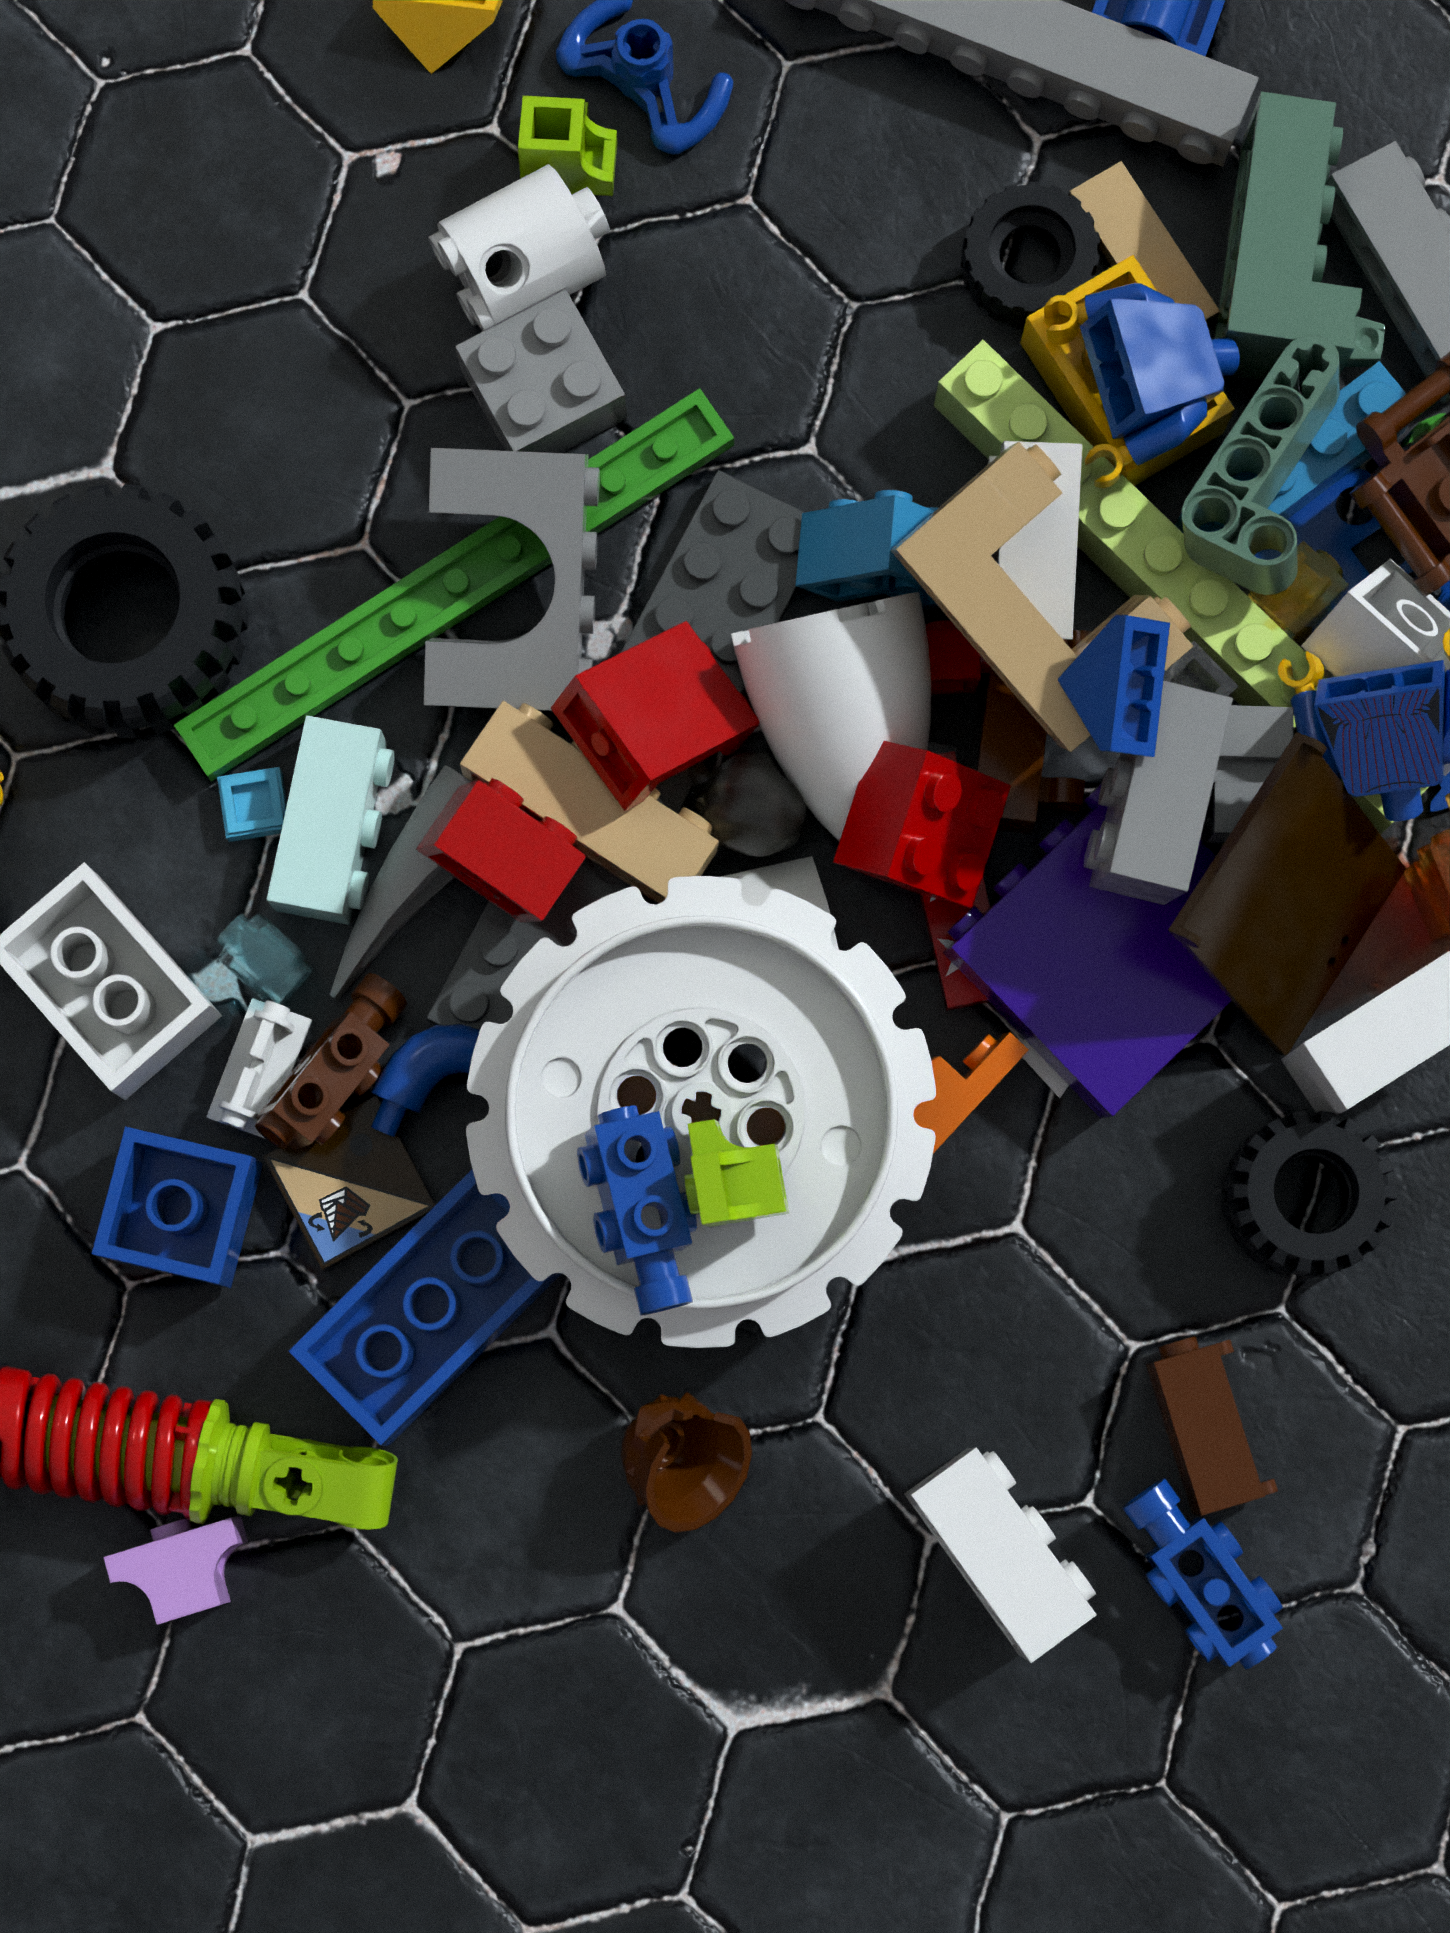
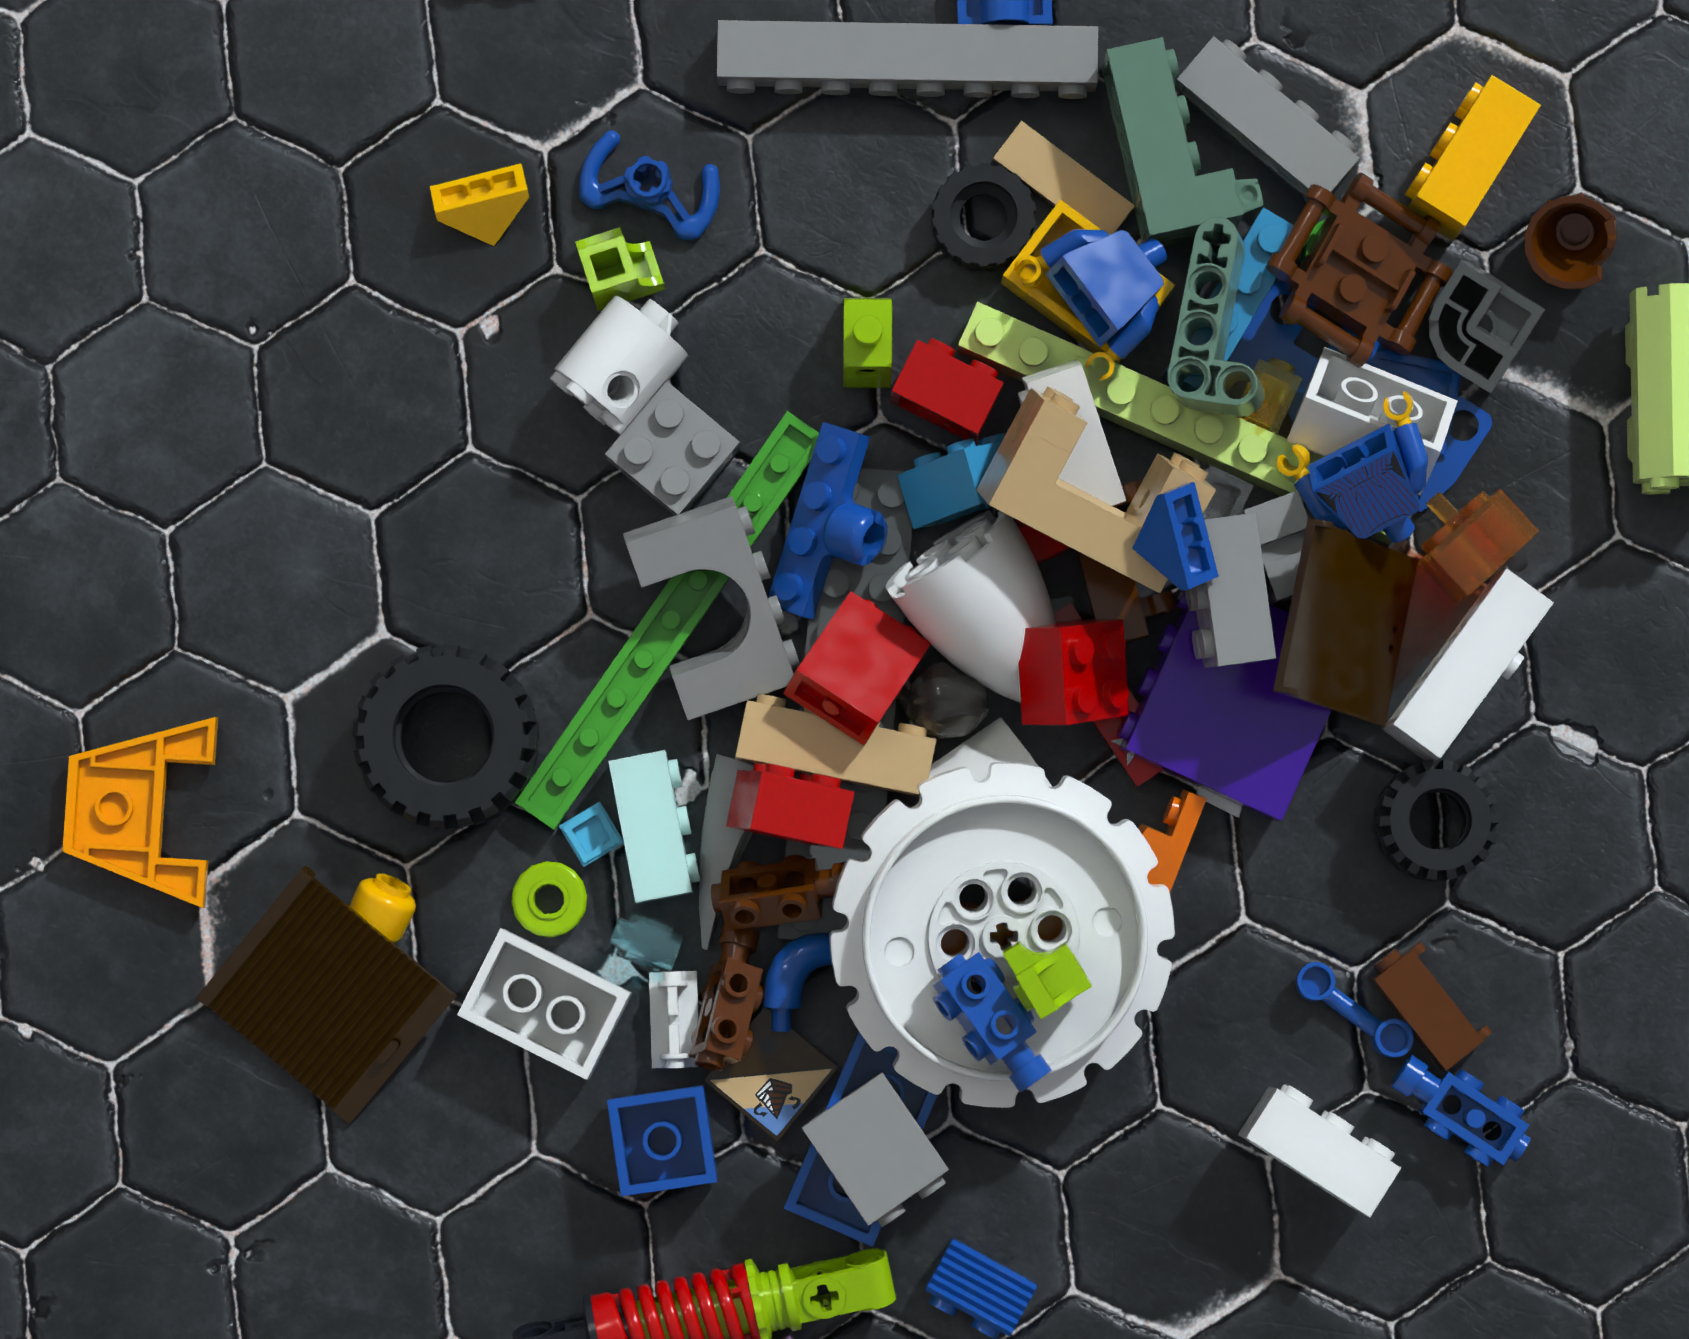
camera: 25 degrees left, 5 degrees up
(151, 835) = (573, 897): none -> lime piece
(432, 1321) = (876, 1150): none -> light grey brick
(442, 958) = (773, 892): none -> reddish brown brick
(498, 1557) = (979, 1288): none -> blue brick
(685, 1461) = (1081, 1173): reddish brown helmet -> none
(694, 535) = (827, 522): none -> blue plate
(833, 337) = (867, 342): none -> lime torso
(902, 428) = (946, 389): none -> red brick
(1142, 1447) = (1388, 1038): none -> blue bar

